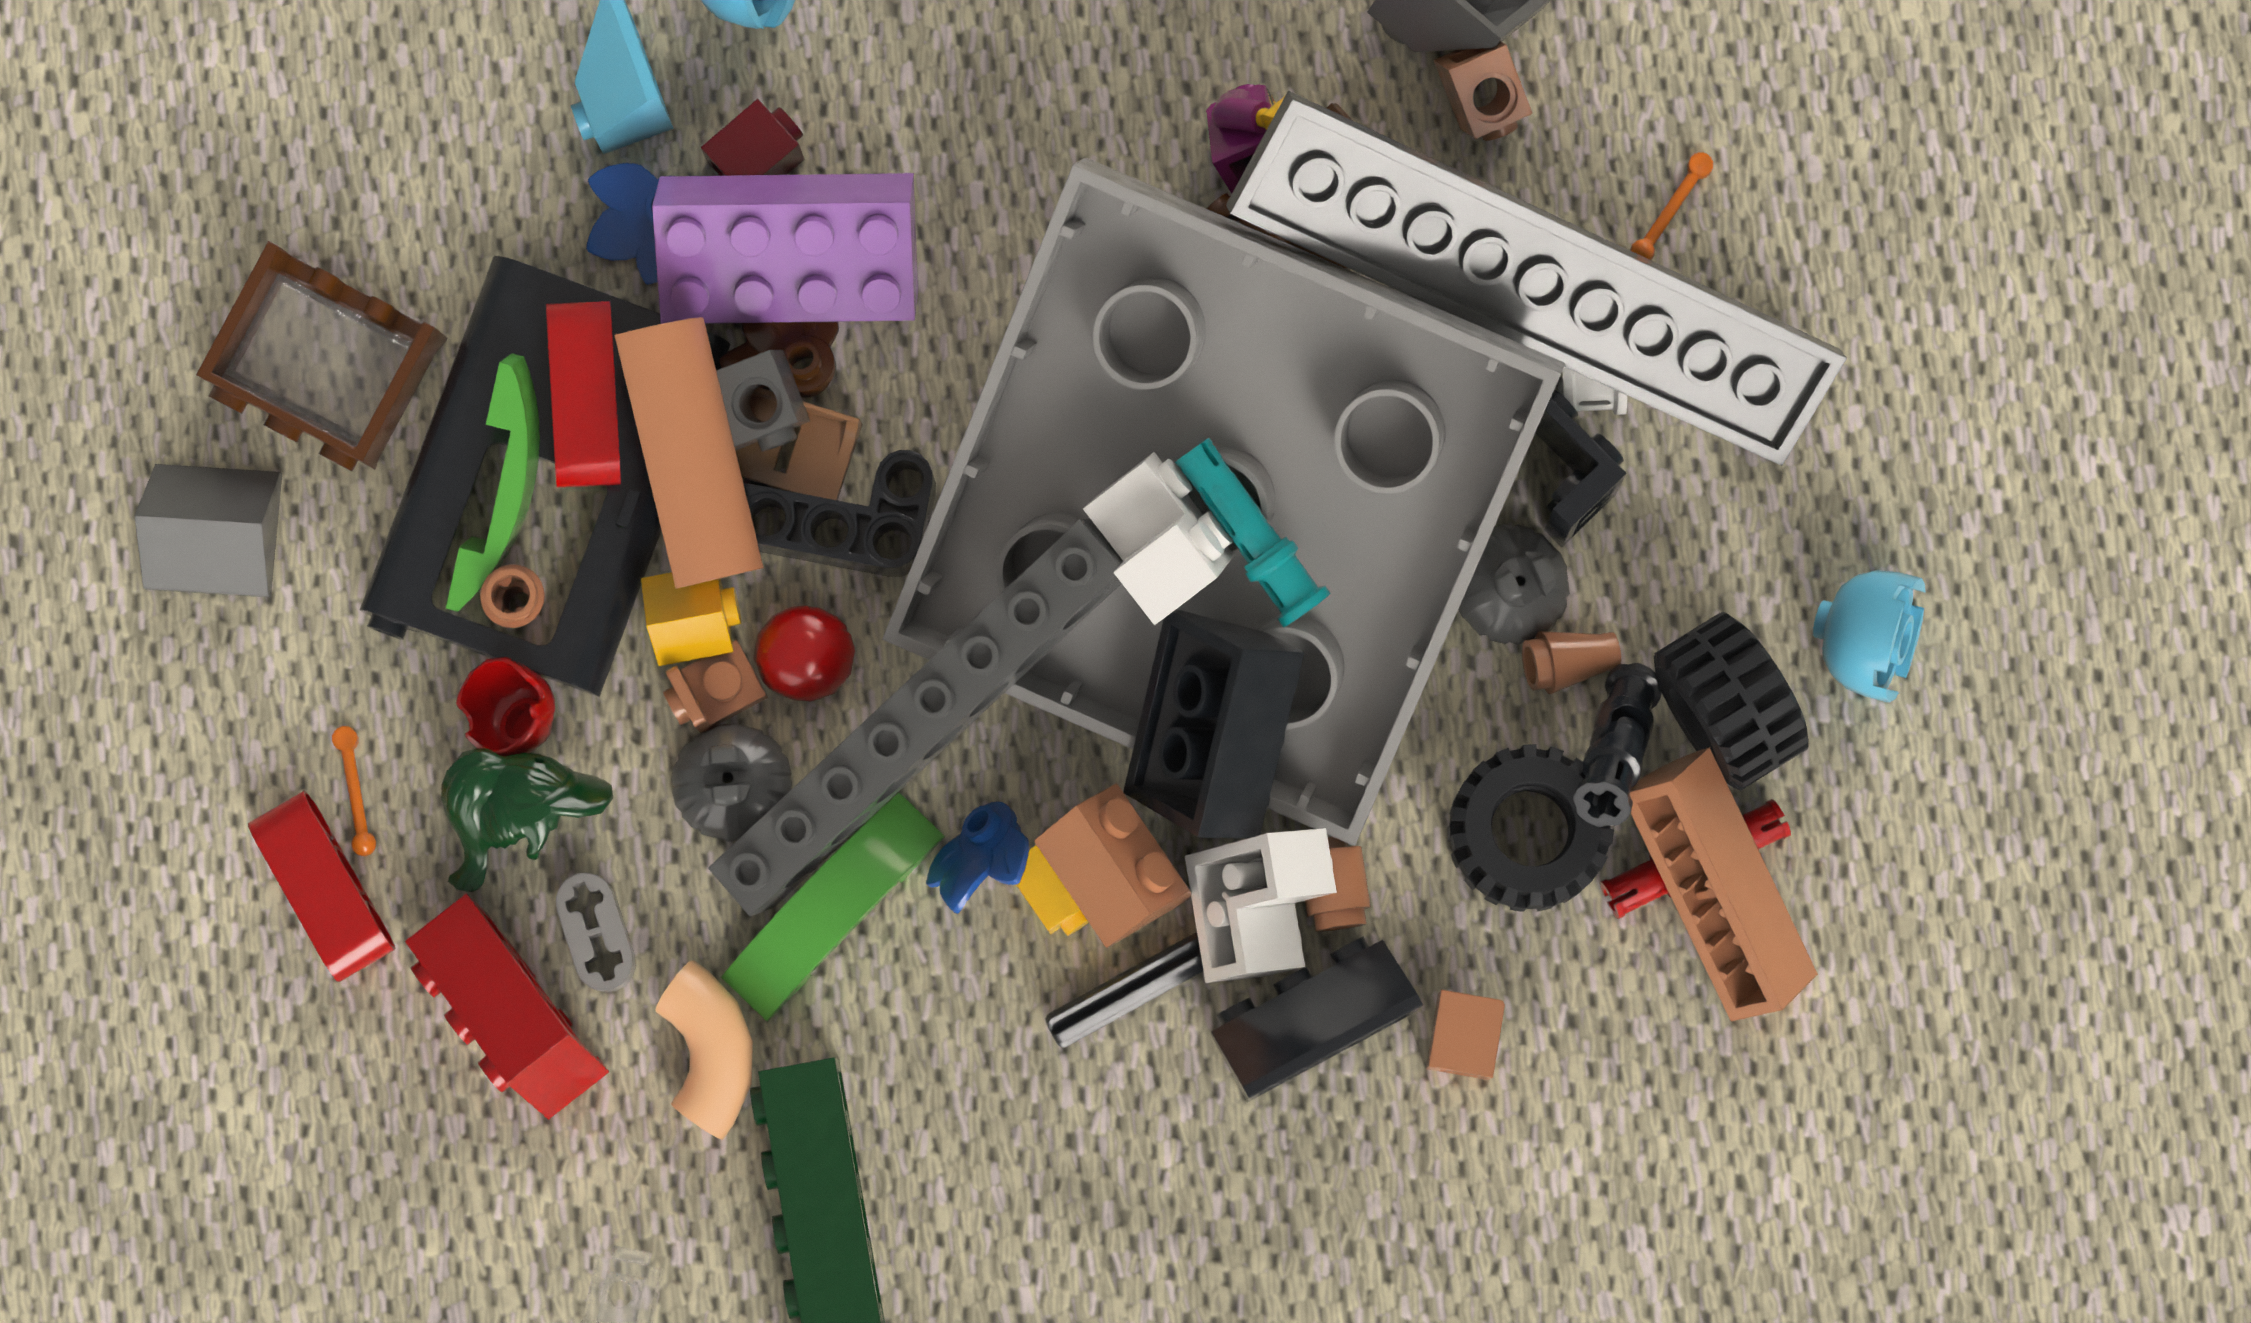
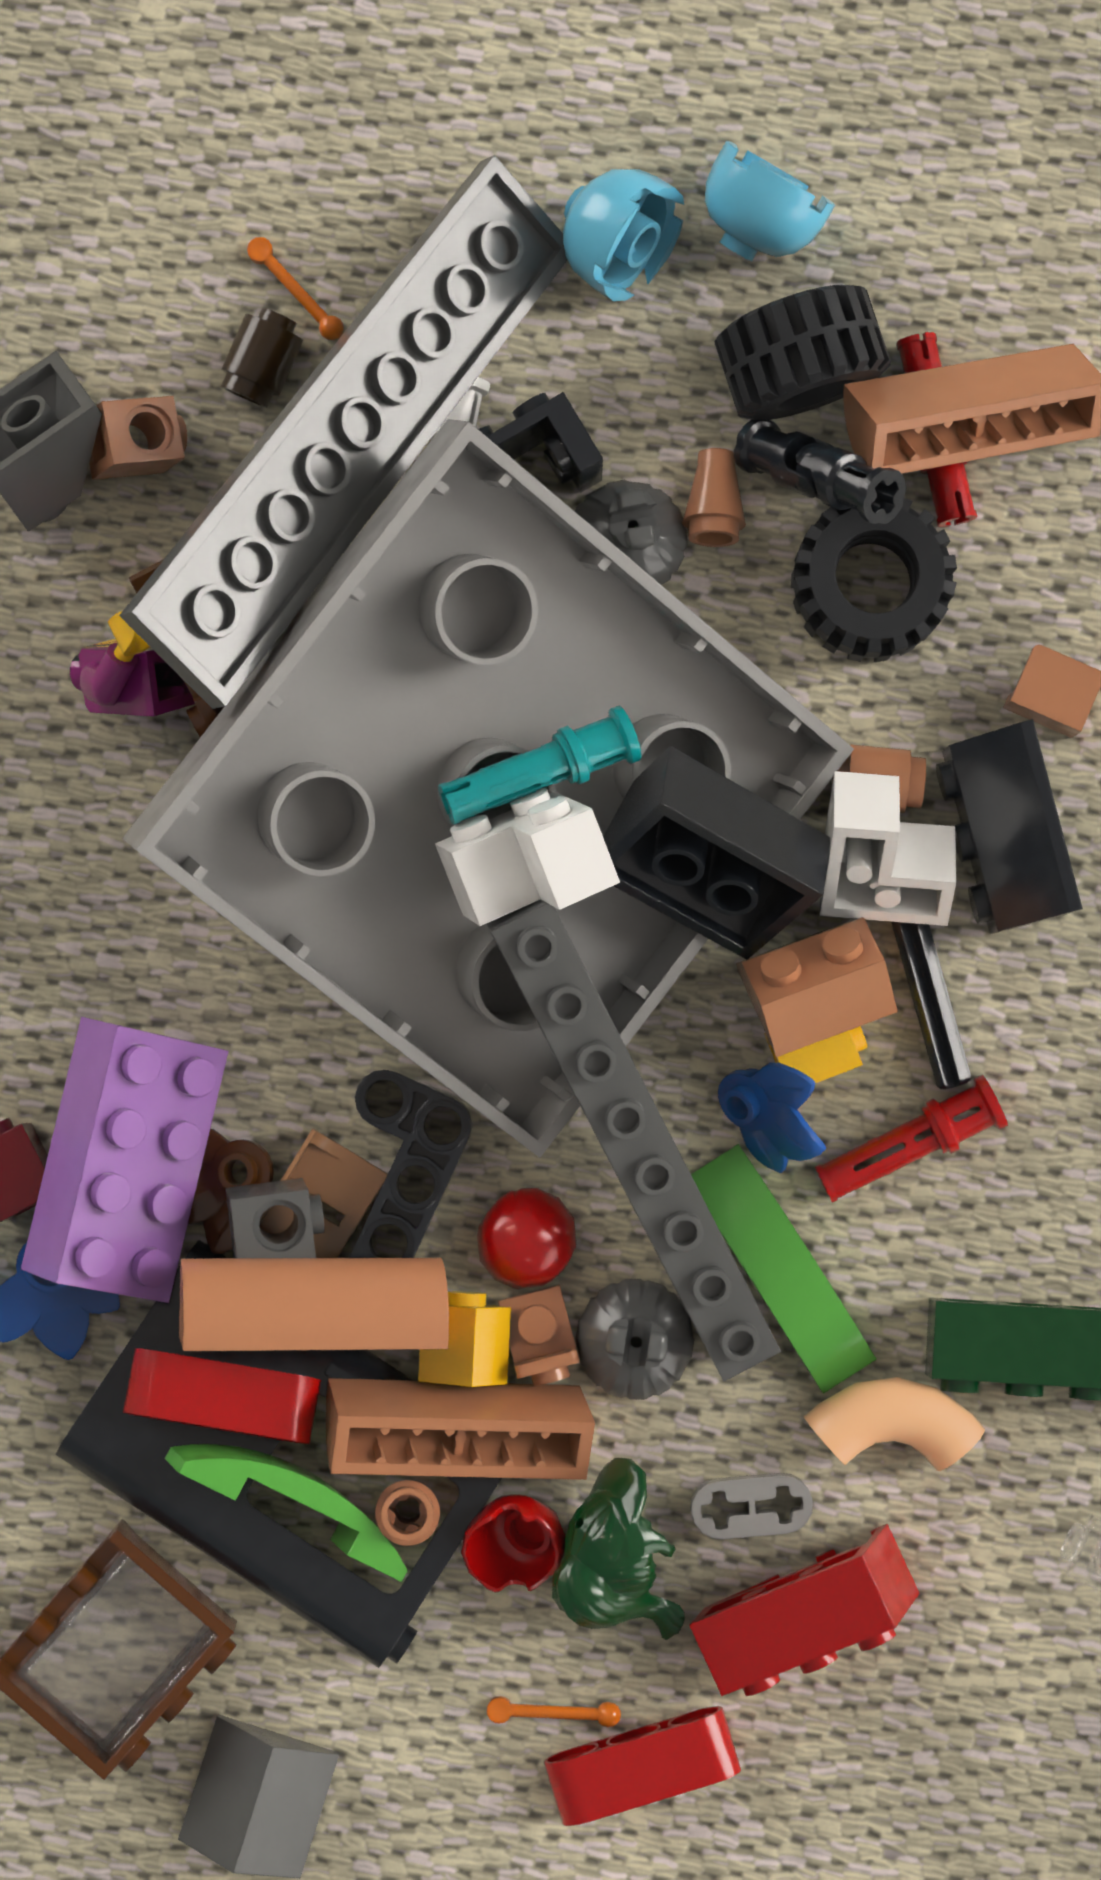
camera: 85 degrees left, 5 degrees up
(603, 626) = (457, 1429): none -> nougat brick
(936, 941) = (839, 1176): none -> red pin
(1594, 190) = (261, 357): none -> dark brown brick
(1809, 499) = (620, 228): none -> medium azure cylinder

